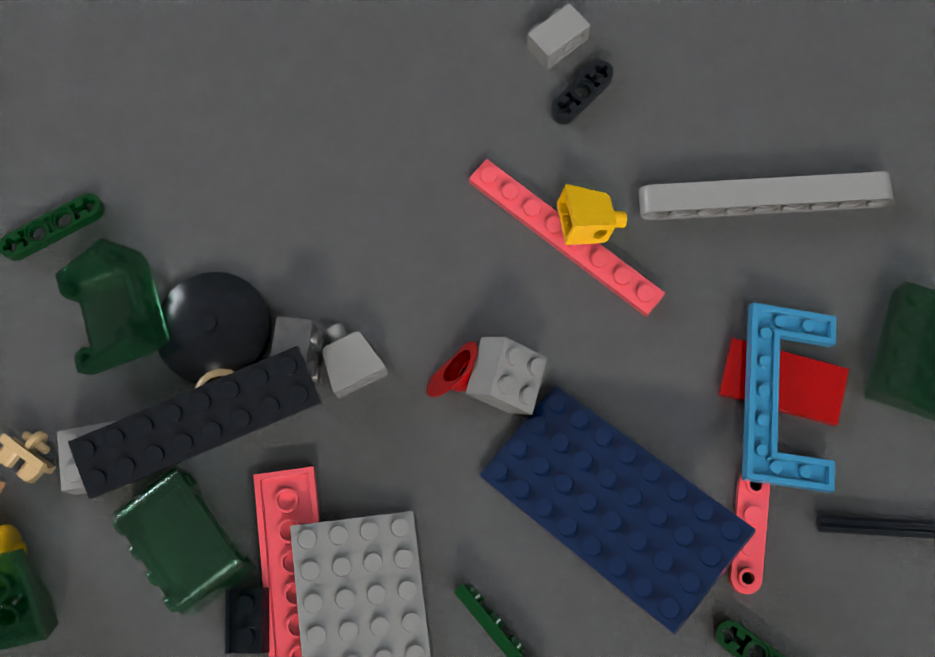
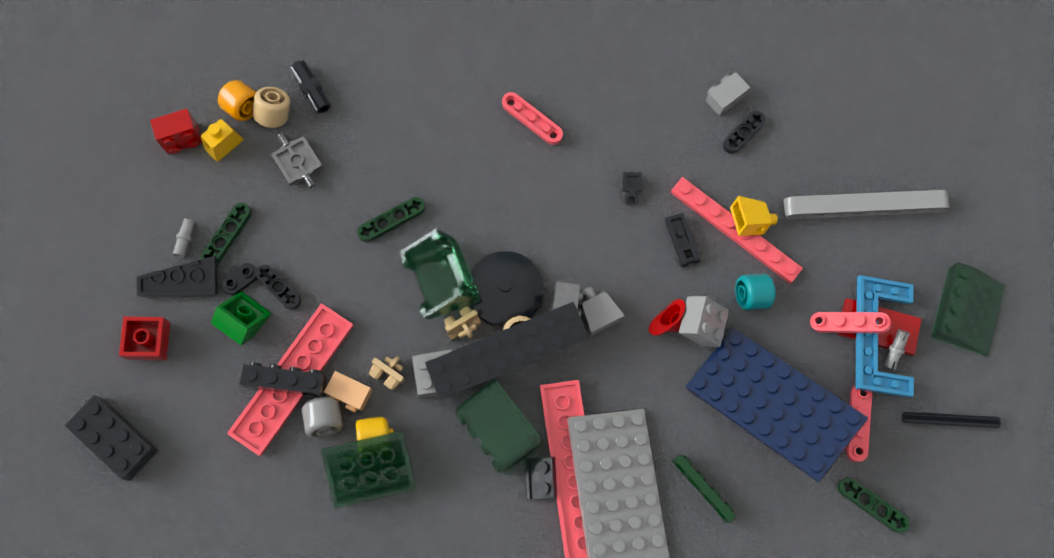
camera: 10 degrees left, 0 degrees up
(143, 384) = (462, 326): none -> tan hips
(267, 77) = (532, 118): none -> coral plate
(409, 170) = (632, 183): none -> black plate
(482, 251) = (682, 239): none -> black plate
(589, 329) = (755, 291): none -> teal head
(736, 376) = (850, 322): none -> coral plate
(809, 416) = (897, 349): none -> light grey pin

